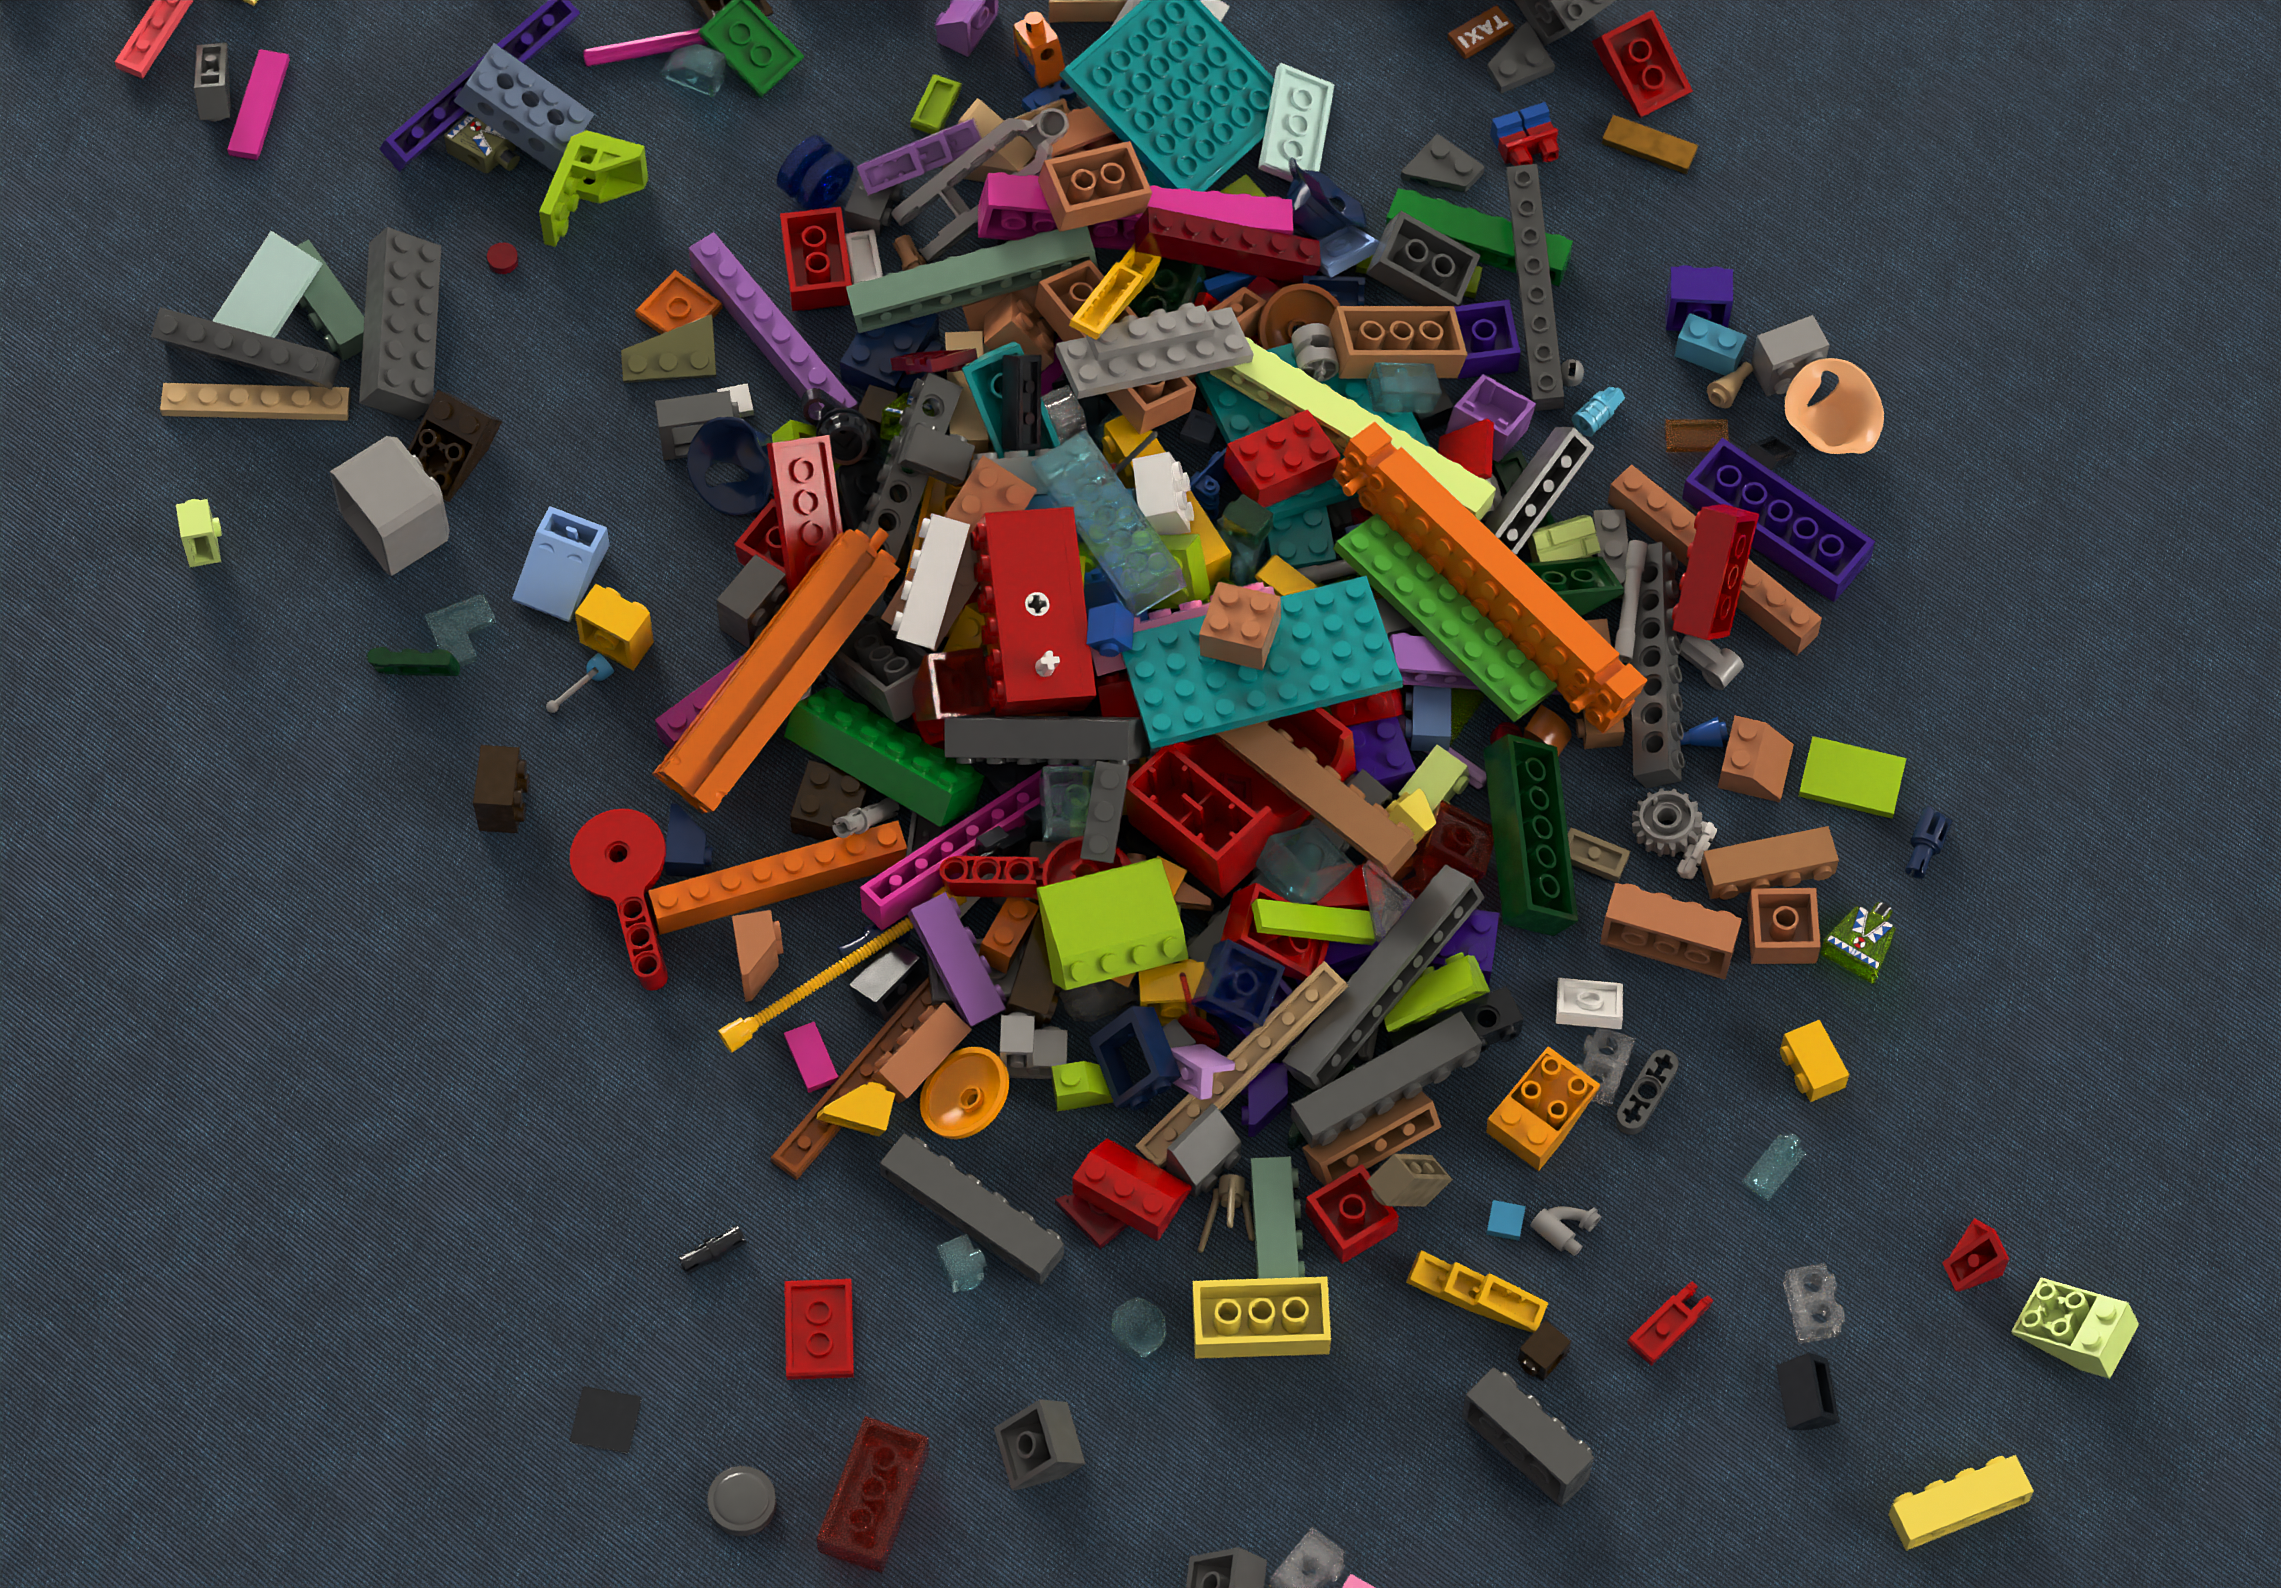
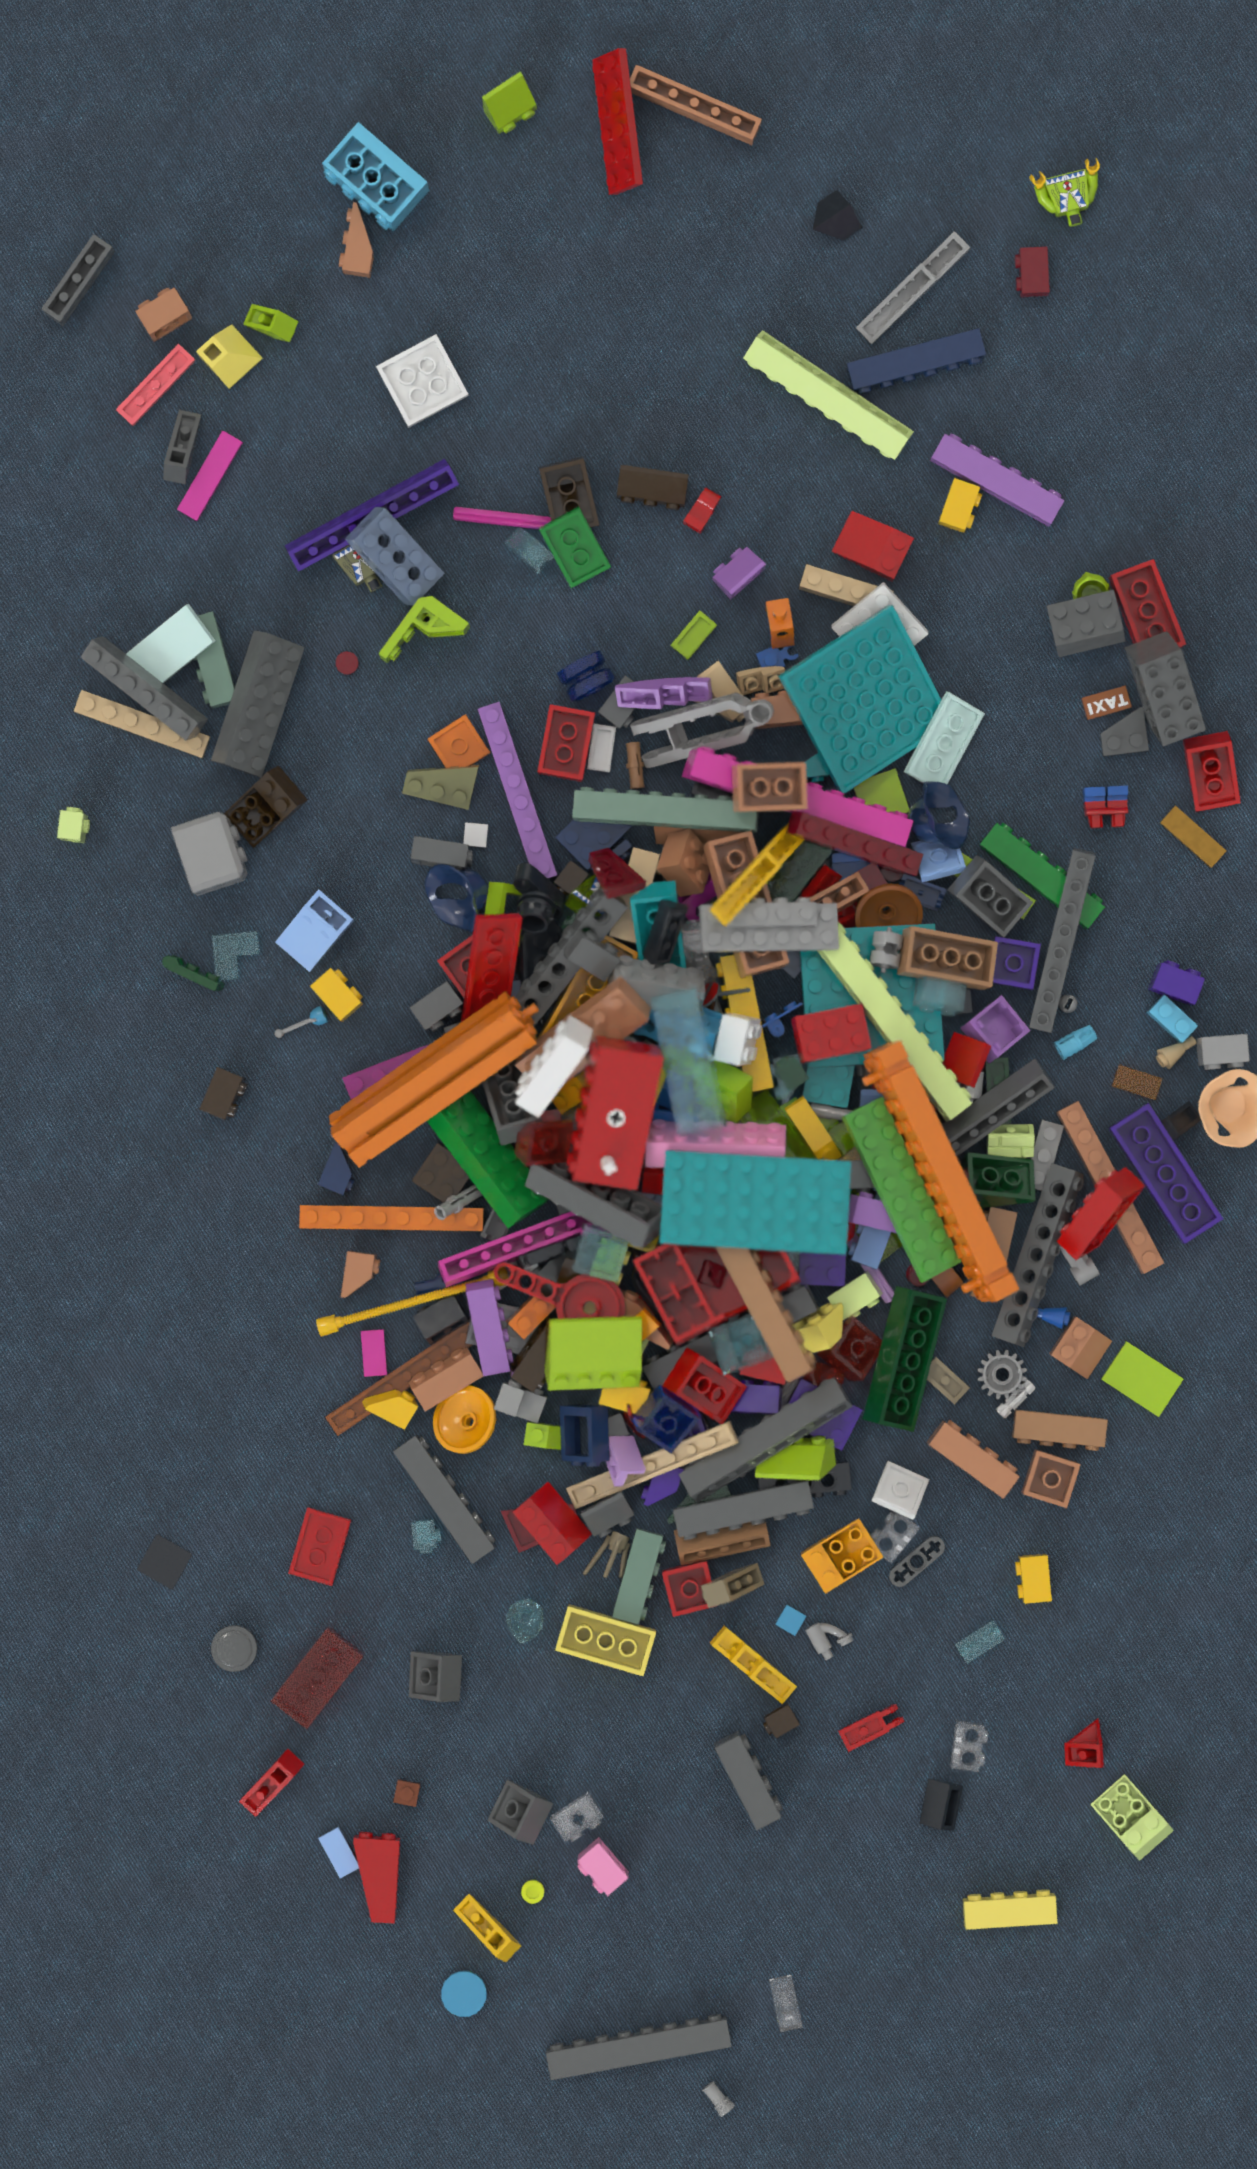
camera: 20 degrees right, 25 degrees up
(625, 882) = (288, 1188): red beam -> none
(712, 1250) = (266, 1469): black pin -> none
(1105, 812) = (615, 1275): dark grey plate -> none
(1110, 629) = (661, 1149): blue brick -> none
(1240, 625) = (748, 1181): nougat brick -> none
(1313, 921) = (731, 1390): lime tile -> none
(1385, 899) = (784, 1392): clear tile -> none
(1444, 166) = (1039, 806): dark grey wing -> none
(1634, 568) = (1025, 1231): light grey piece -> none
(1861, 941) = (1101, 1503): clear neon green torso -> none
(1927, 840) = (1174, 1444): dark blue arm -> none

